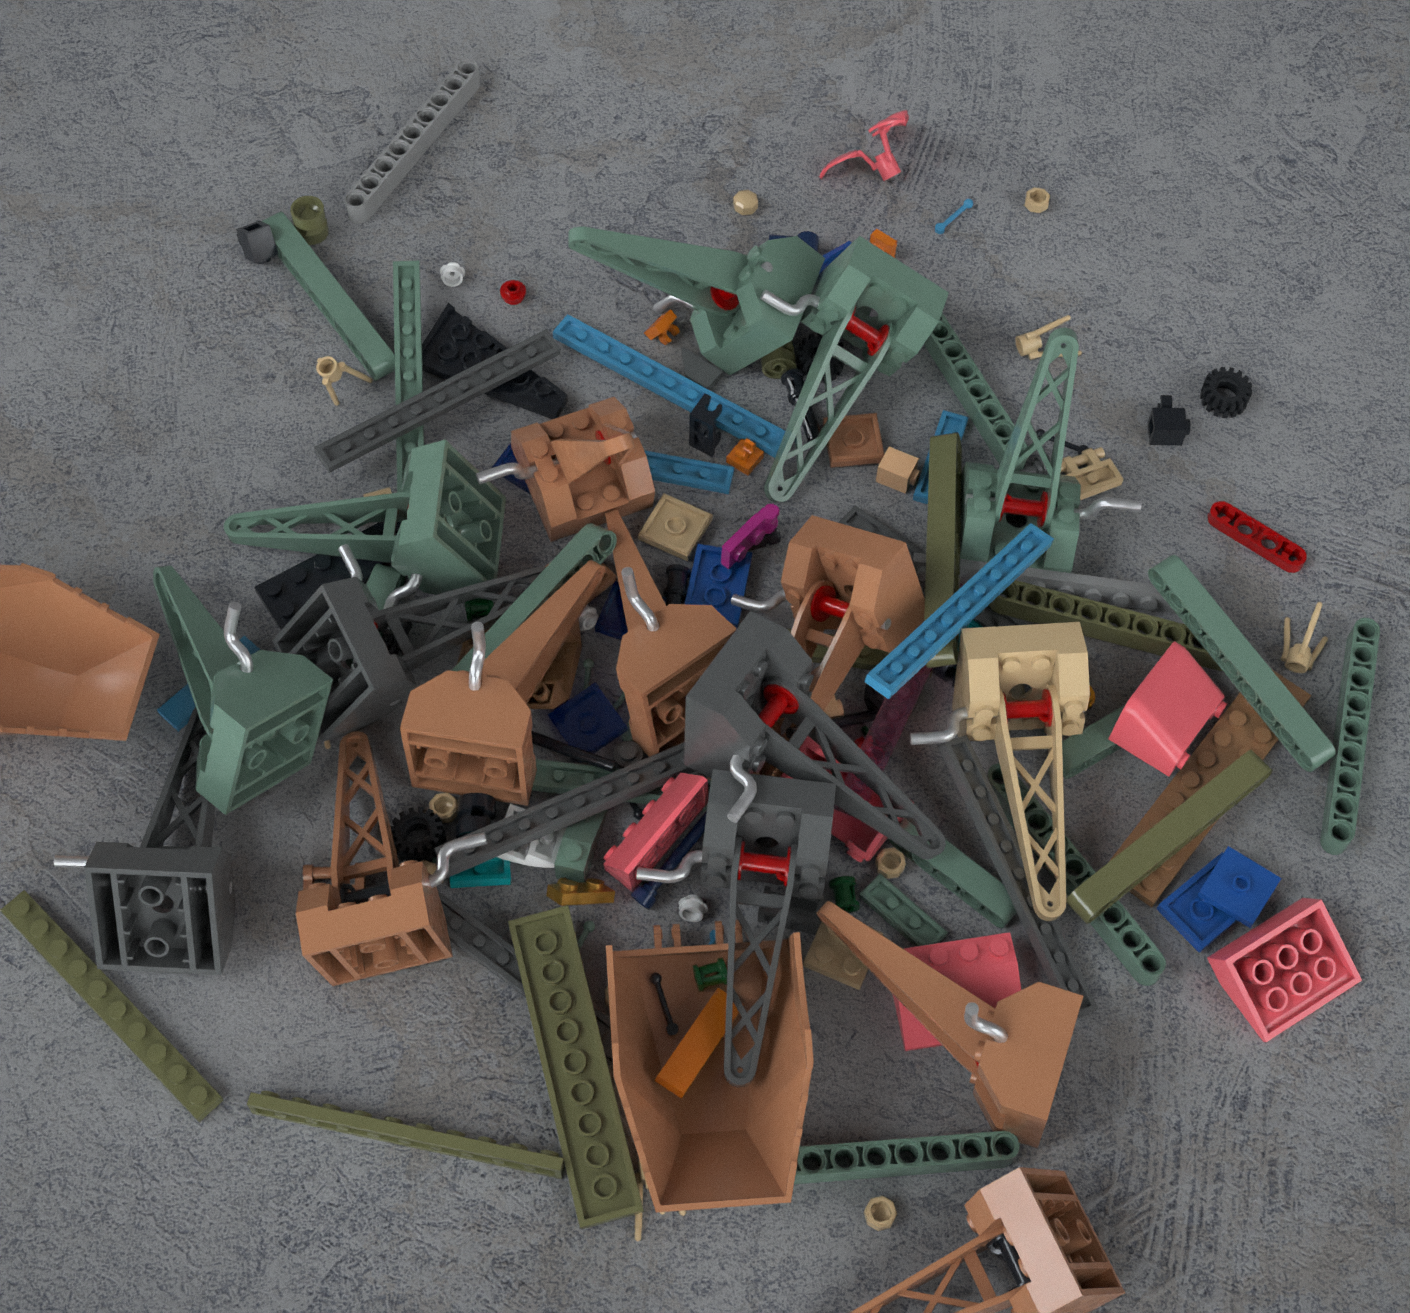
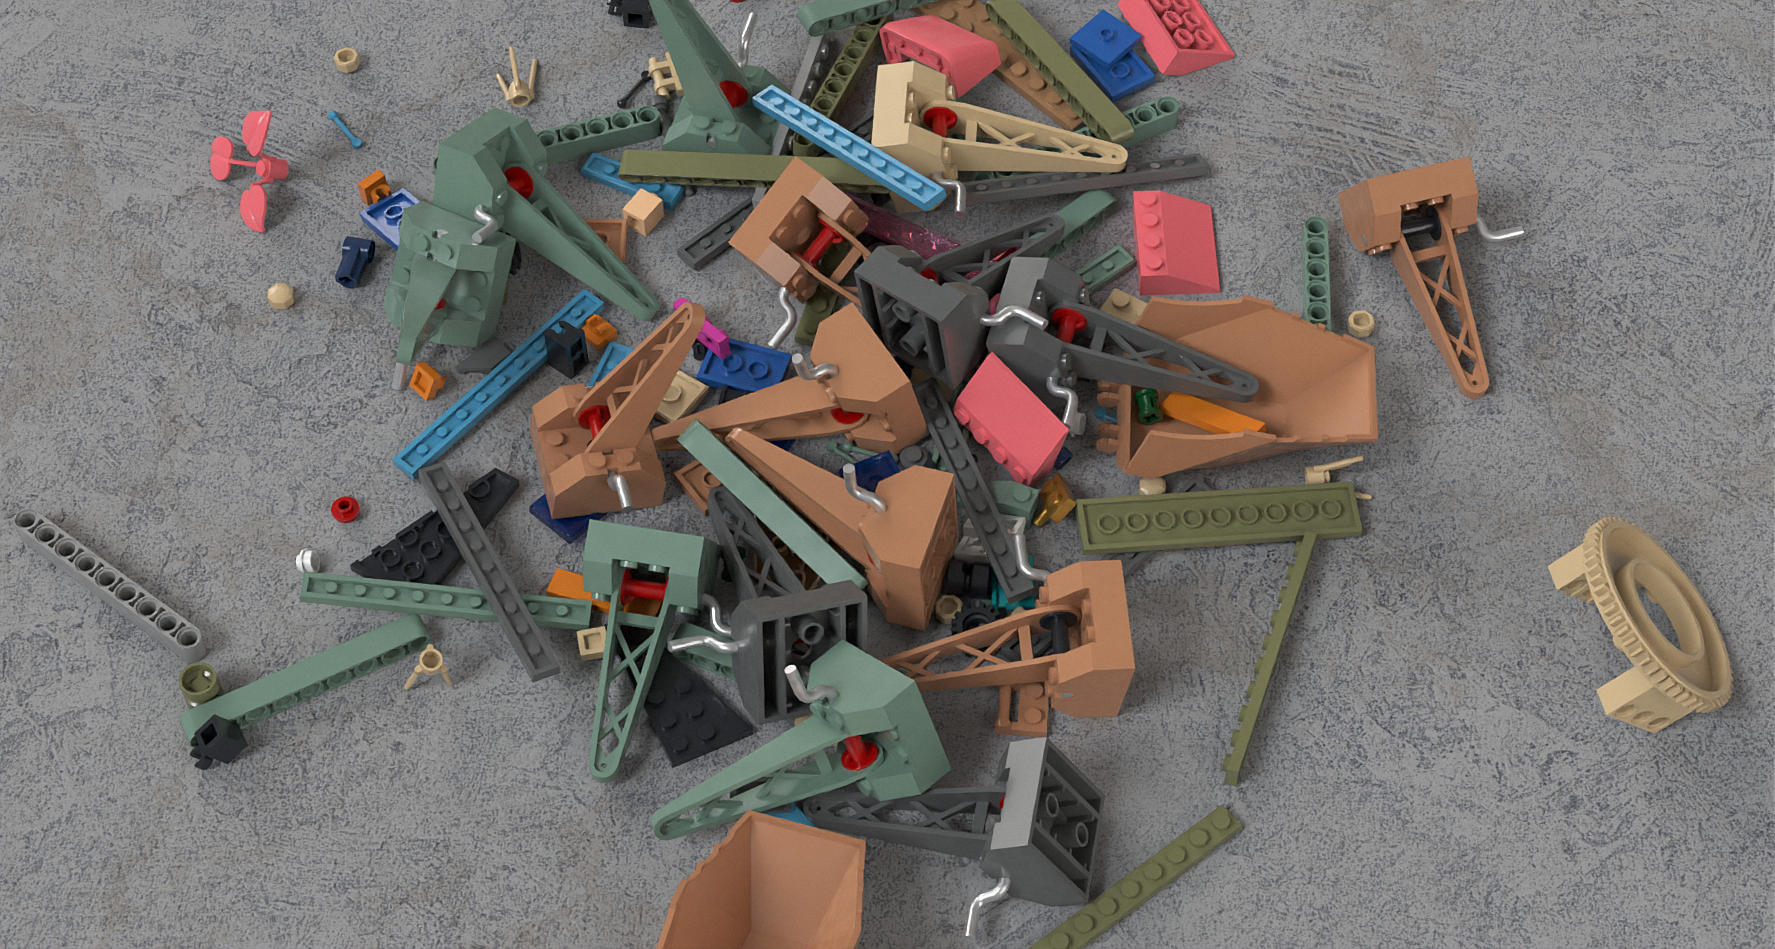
camera: 80 degrees left, 5 degrees down
(794, 389) = (539, 278): black pin -> none
(1008, 1049) = (1253, 197): nougat piece -> none

